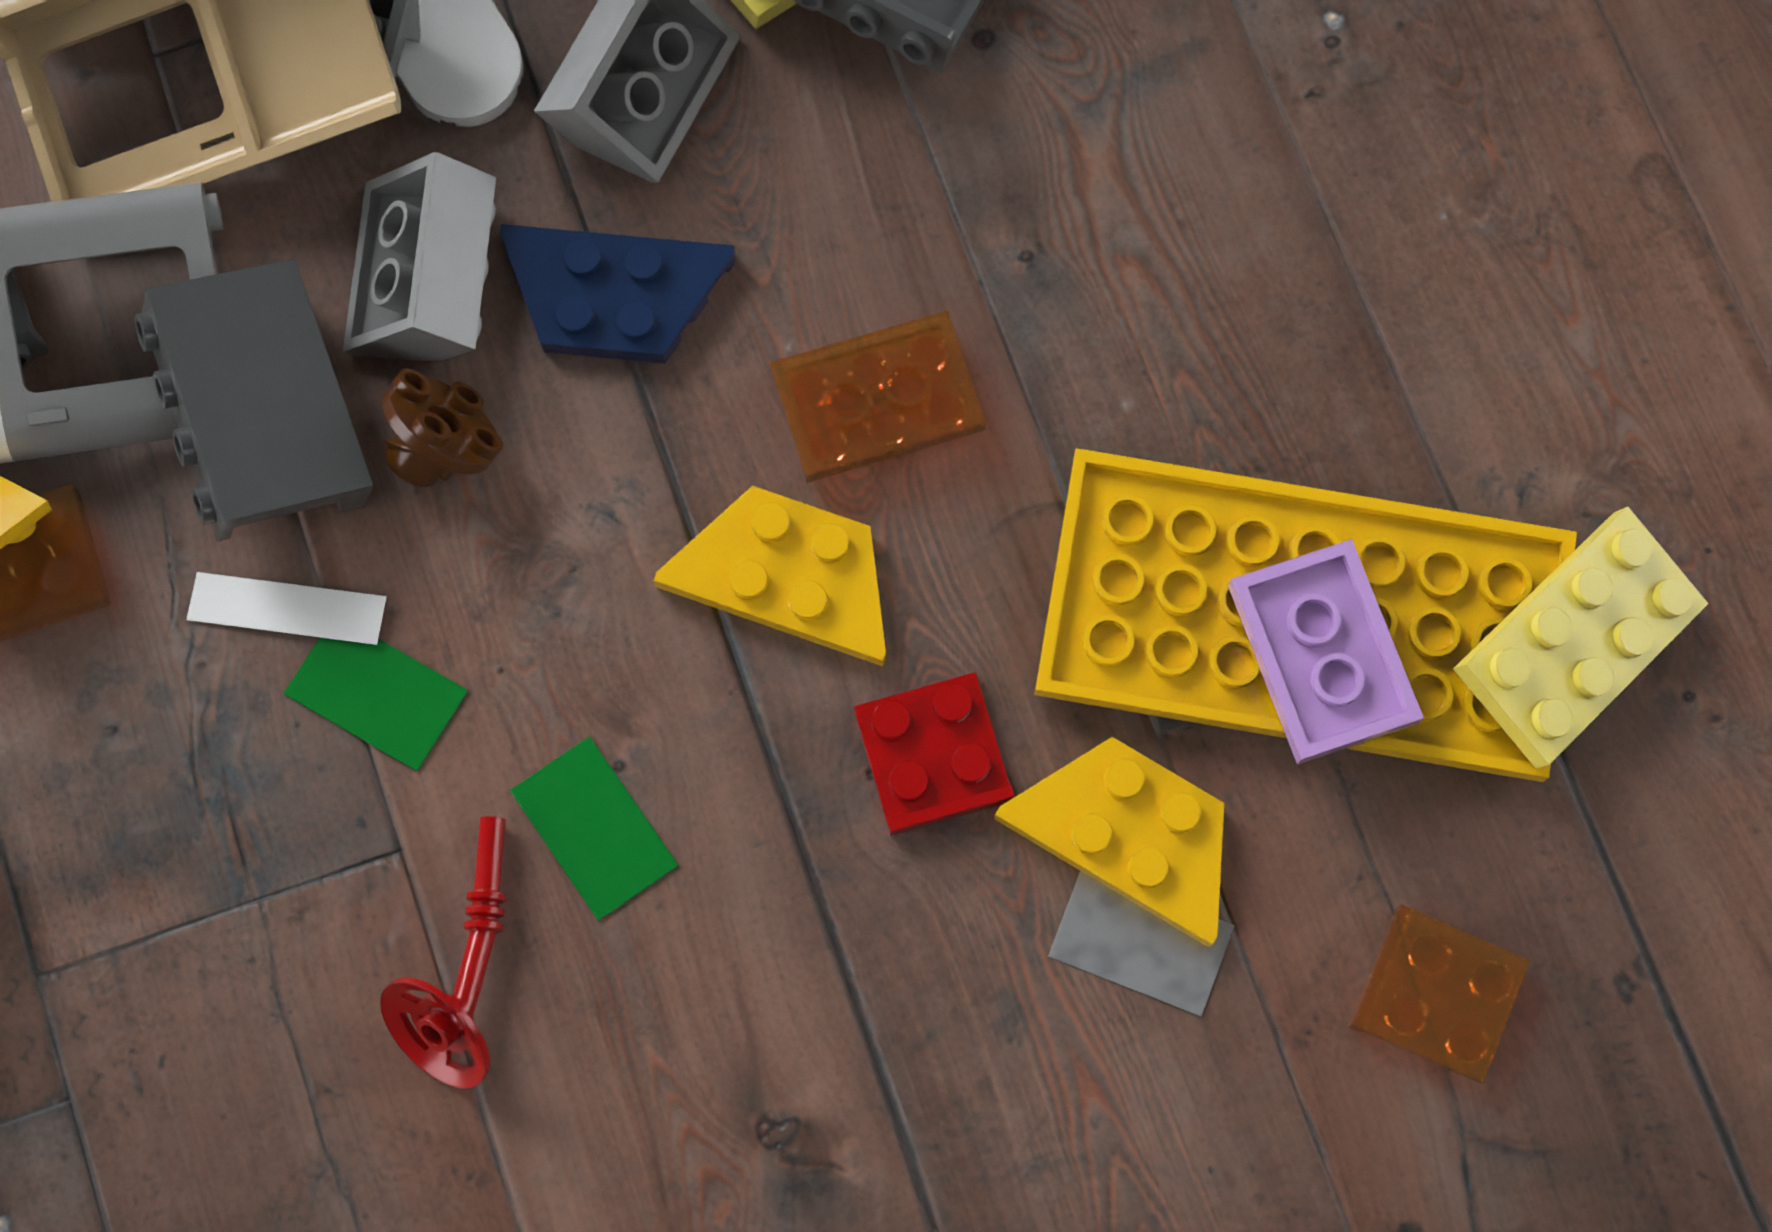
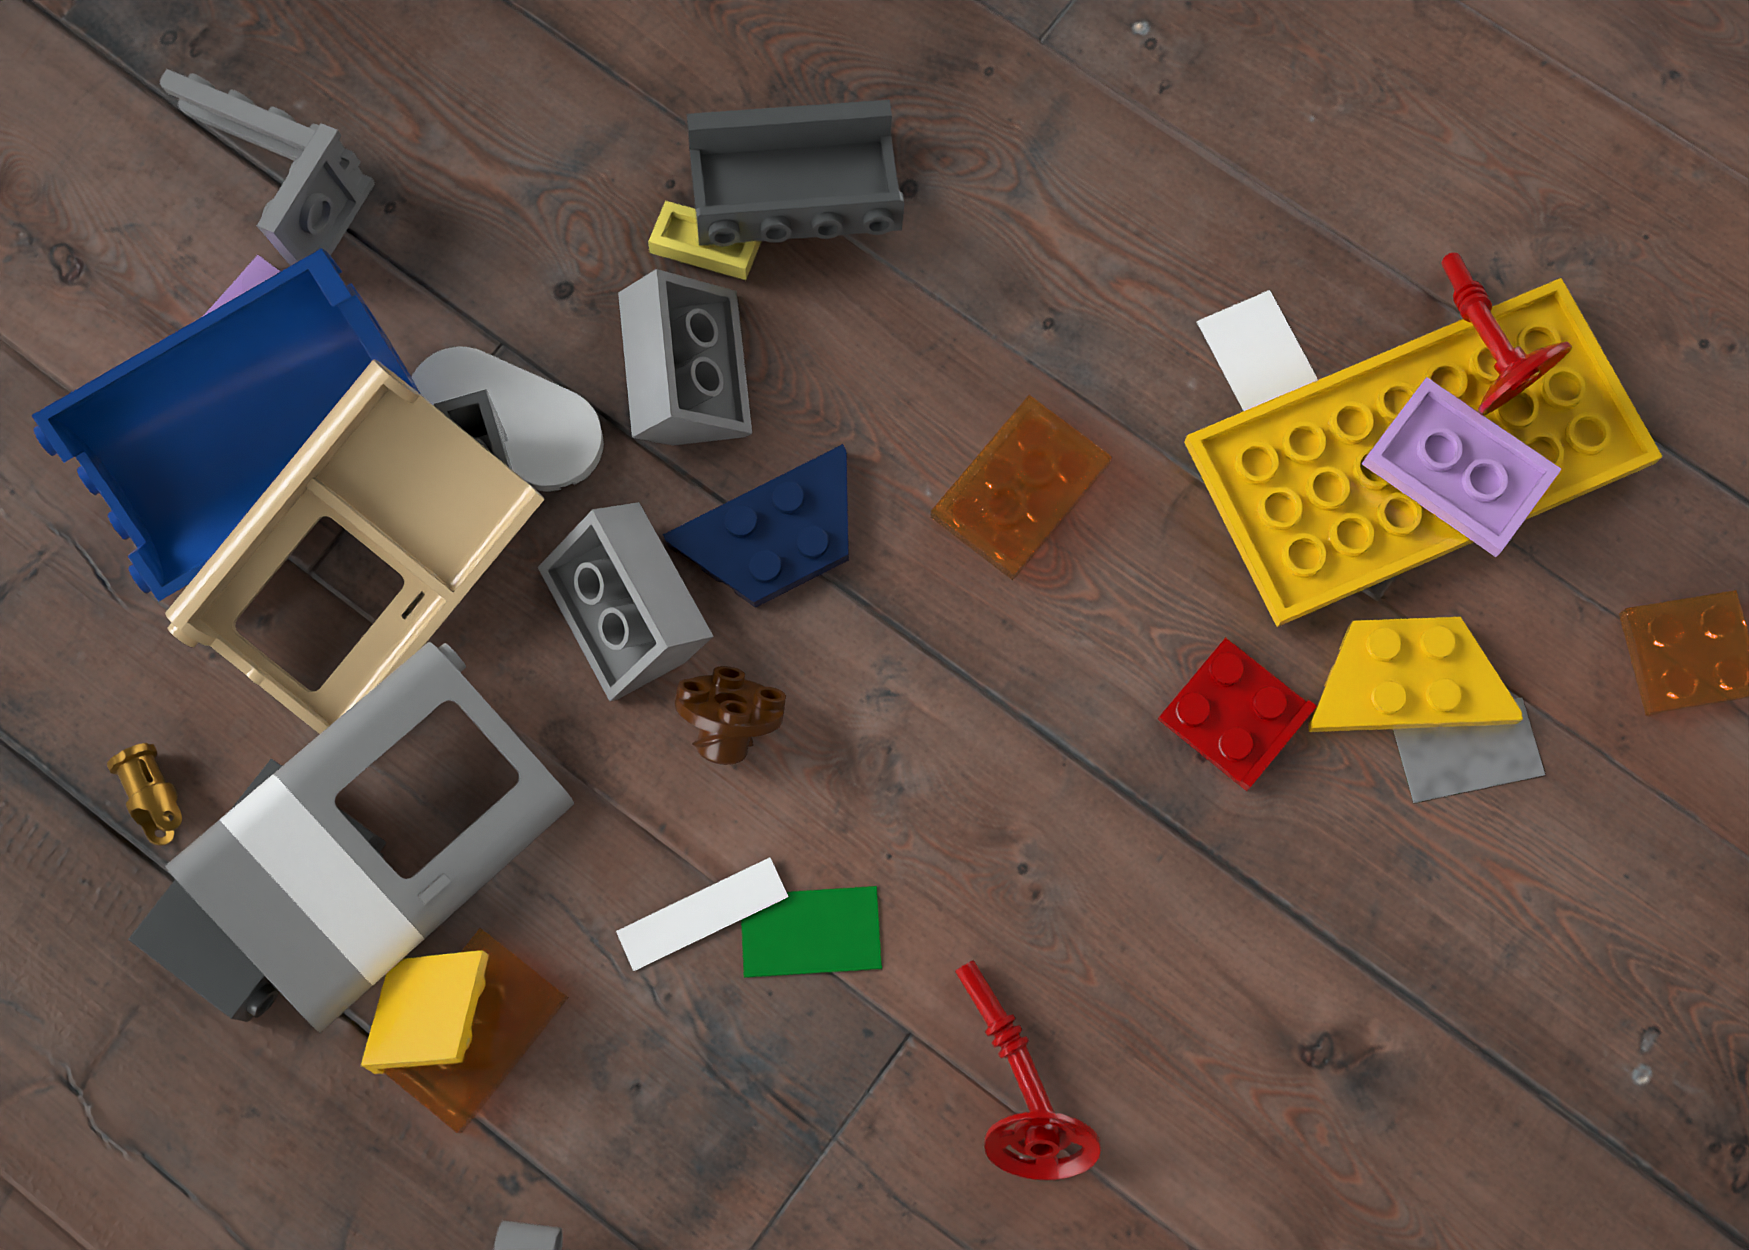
camera: 30 degrees left, 0 degrees up
(252, 396) = (578, 775): dark grey panel -> none
(593, 828) = (1037, 924): green sticker -> none
(786, 571) = (1046, 651): yellow wing -> none
(1216, 411) = (1257, 350): none -> white sticker
(1444, 585) = (1514, 366): none -> red dish
(1581, 637) = (1620, 348): light yellow plate -> none

